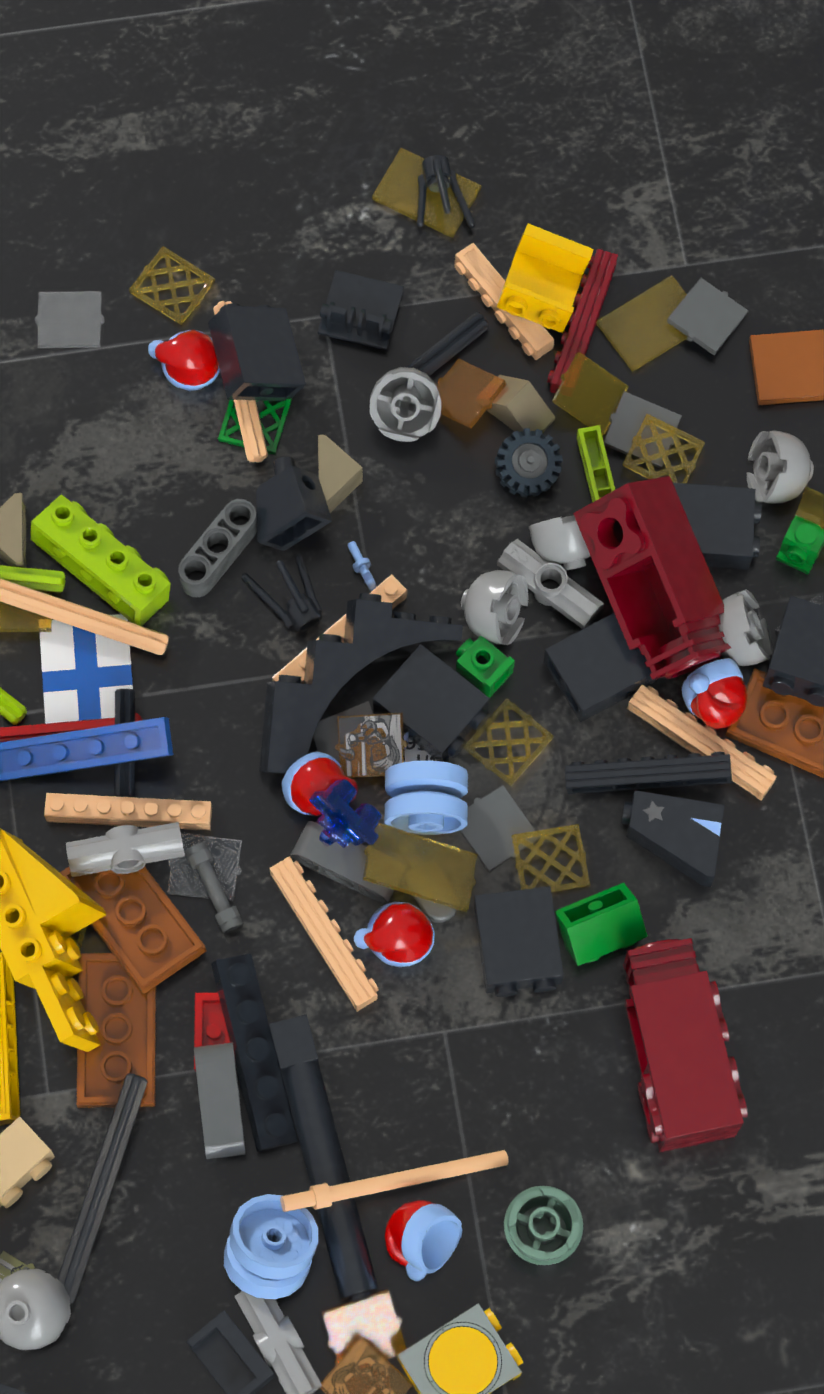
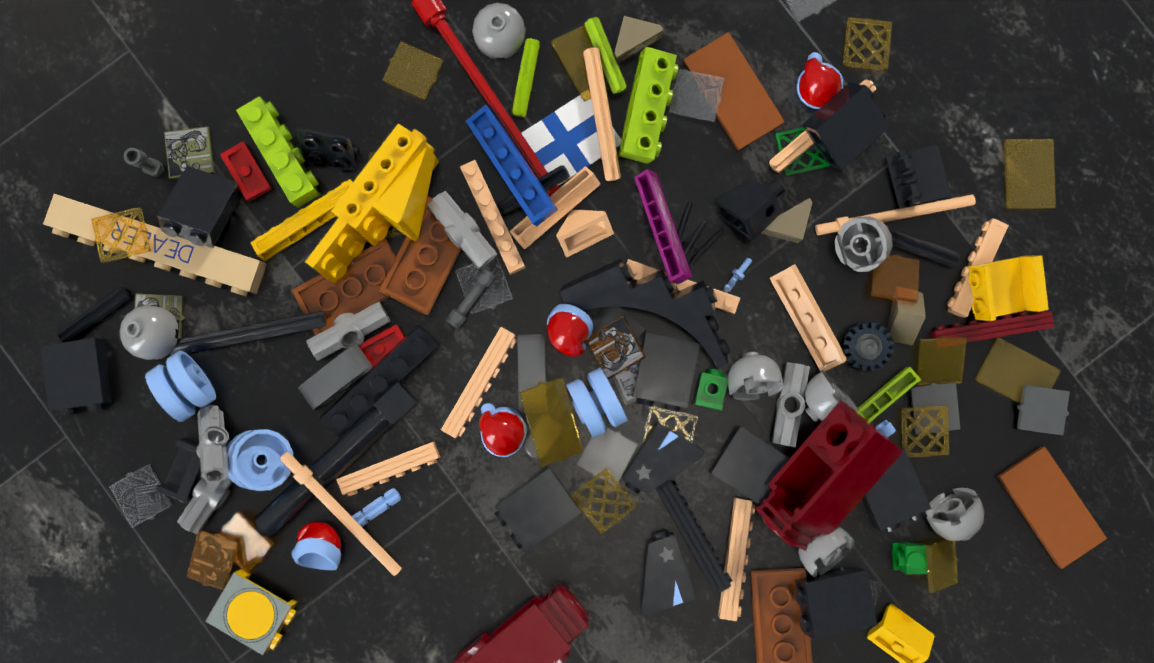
camera: 65 degrees right, 15 degrees up
(121, 499) = (696, 95): none -> clear piece
(121, 1298) = (180, 386): none -> light blue wheel
(140, 458) = (746, 107): none -> dark orange tile
(153, 703) = (565, 199): none -> light nougat piece
(170, 1055) = (348, 330): none -> light grey piece
(206, 712) = (582, 230): none -> light nougat slope
(219, 1292) = (212, 444): none -> light grey piece
(223, 532) = (710, 170): dark grey beam -> none
(257, 614) = (663, 227): none -> magenta piece
(340, 821) = (555, 349): clear blue hips -> none
(369, 1100) = (390, 467): none -> light nougat piece
(393, 351) = (901, 213): none -> light nougat bar
(410, 1136) = (377, 507): none -> light blue axle
(439, 178) = (1044, 176): black plant -> none
(458, 512) = (808, 318): none -> light nougat plate
(534, 764) = (659, 459): none -> black slope
(543, 1225) = (360, 621): sand green cone -> none
(601, 924) = (575, 557): green brick -> none
(716, 693) = (769, 555): red piece -> none

